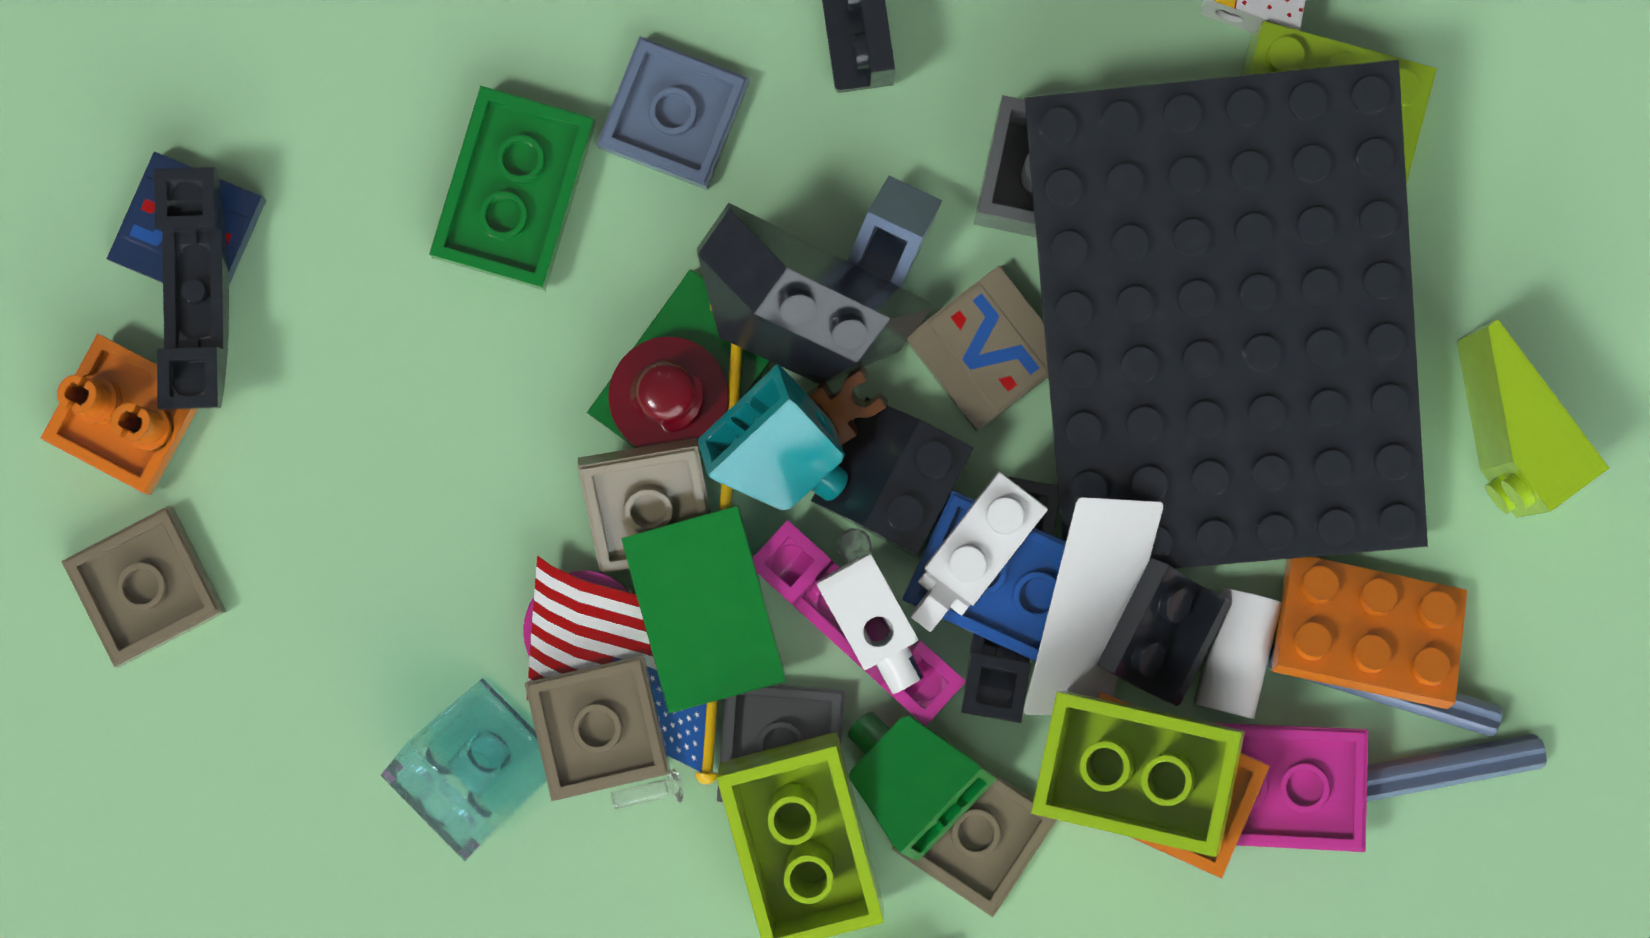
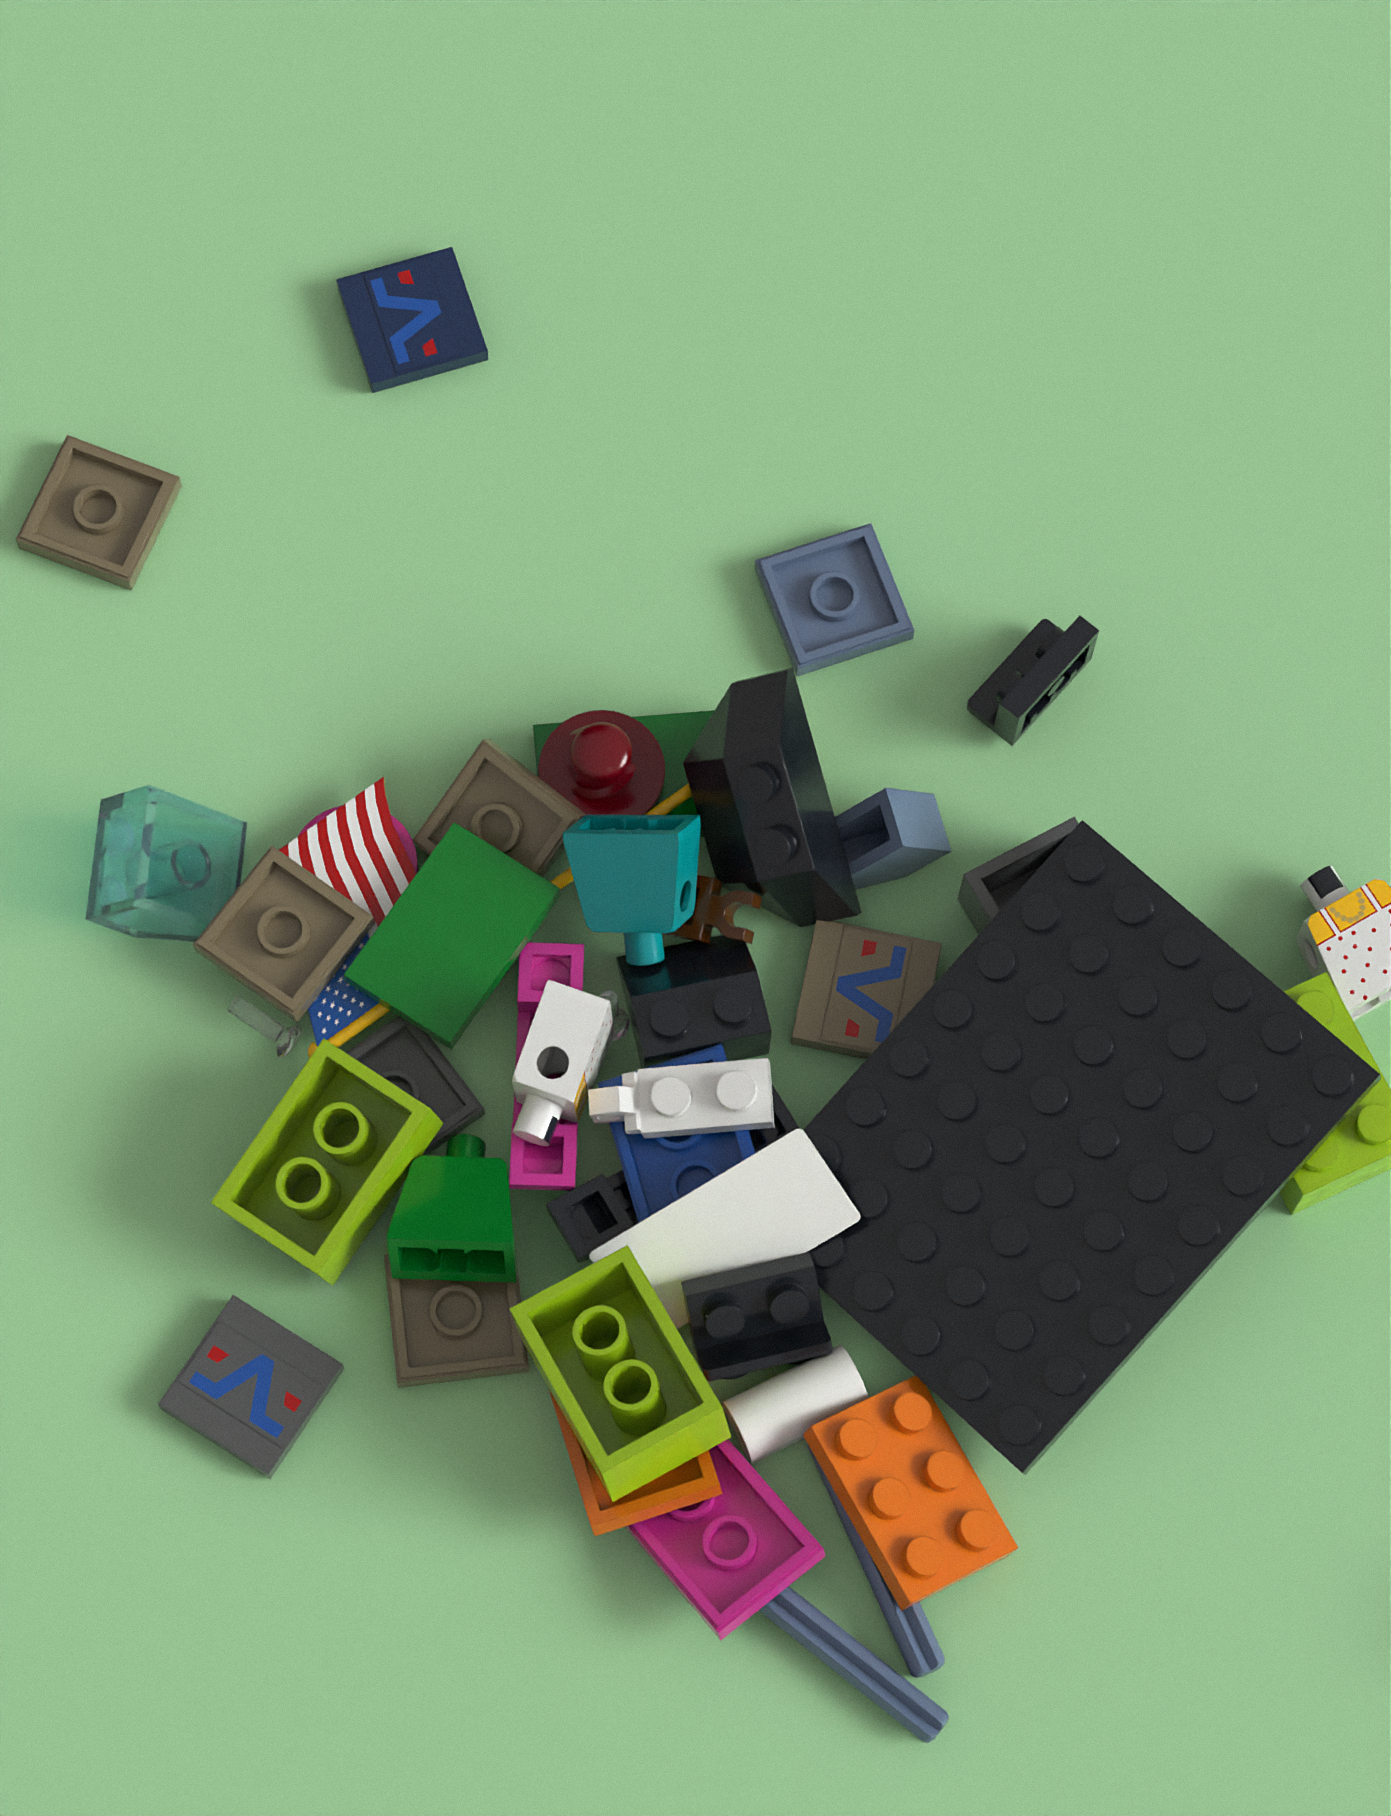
camera: 45 degrees right, 15 degrees down
(113, 416) = (224, 385): orange plate -> none
(194, 288) = (371, 356): black slope -> none
(512, 188) = (662, 526): green plate -> none
(1520, 428) = (1180, 1488): lime slope -> none

